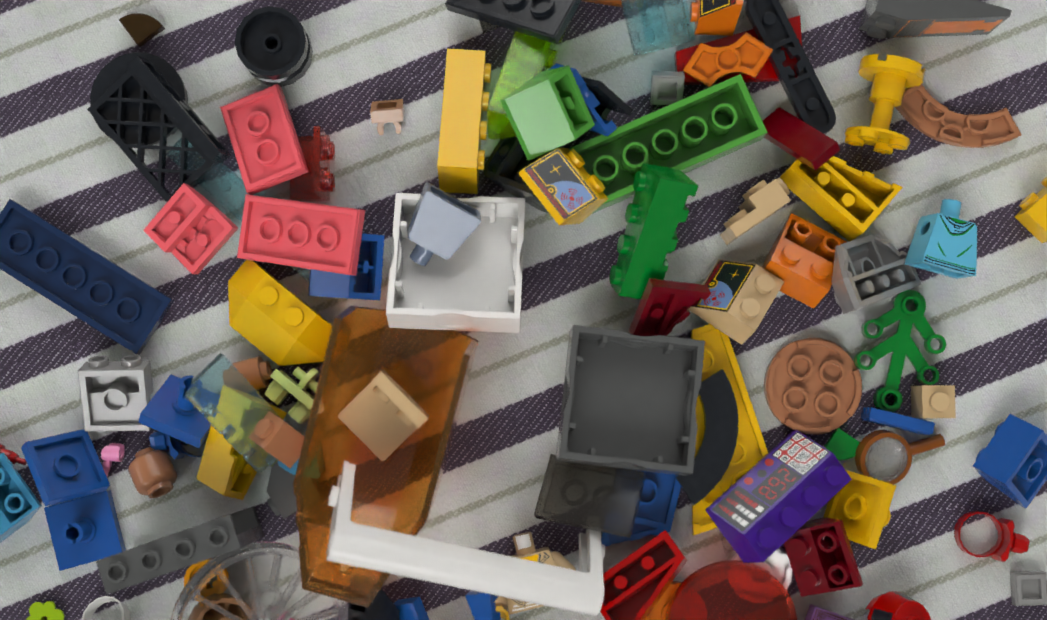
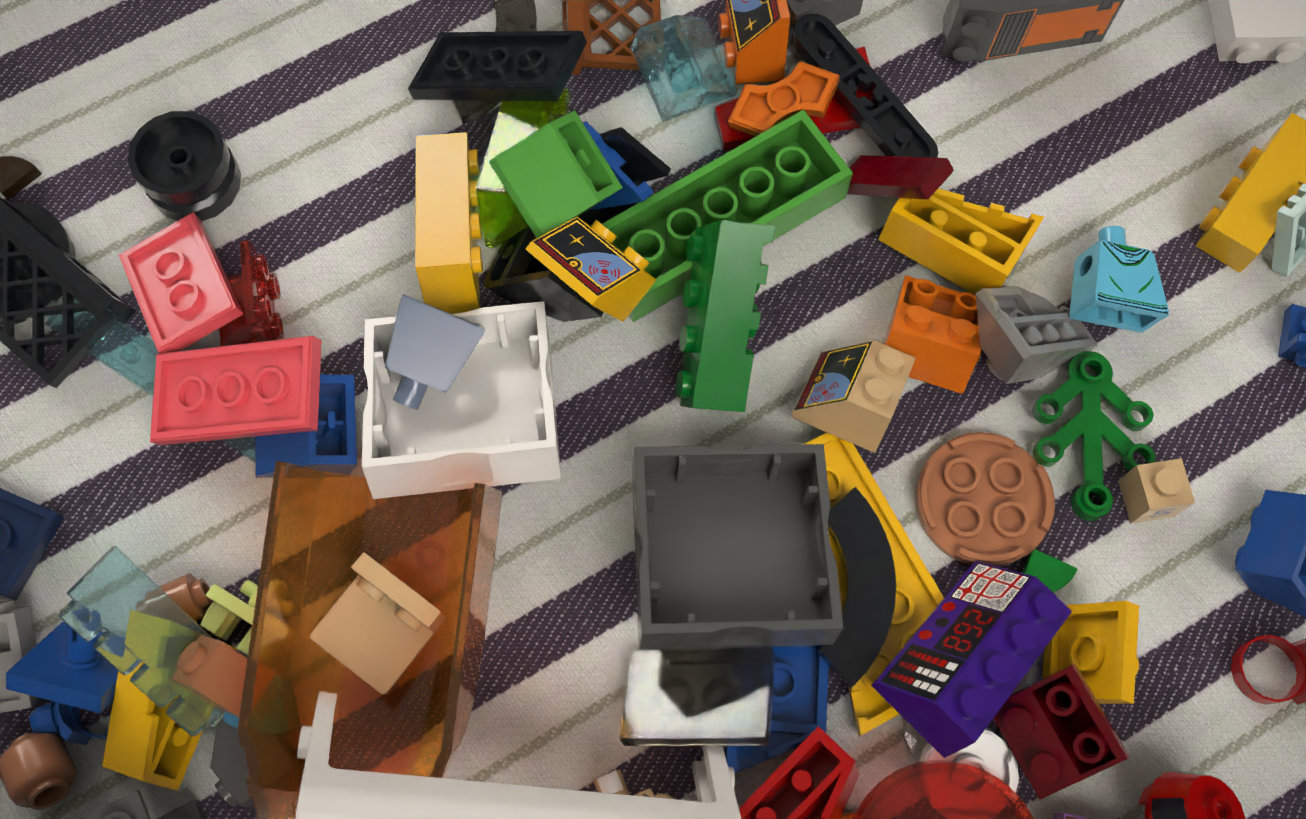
camera: 10 degrees left, 15 degrees down
(190, 228) = (82, 413): coral slope -> none
(275, 318) = (204, 515): yellow wedge -> none
(387, 111) = (347, 229): tile -> none
(664, 306) = (760, 407): dark red wing -> none
(666, 87) = (709, 145): light grey tile -> none
(759, 204) = (860, 273): tan plate -> none
(888, 85) = (994, 95): yellow piece -> none
(889, 456) = (1115, 571): piece -> none
(897, 421) = (1113, 525): blue tile -> none
(954, 128) = (1087, 151): nougat tile -> none

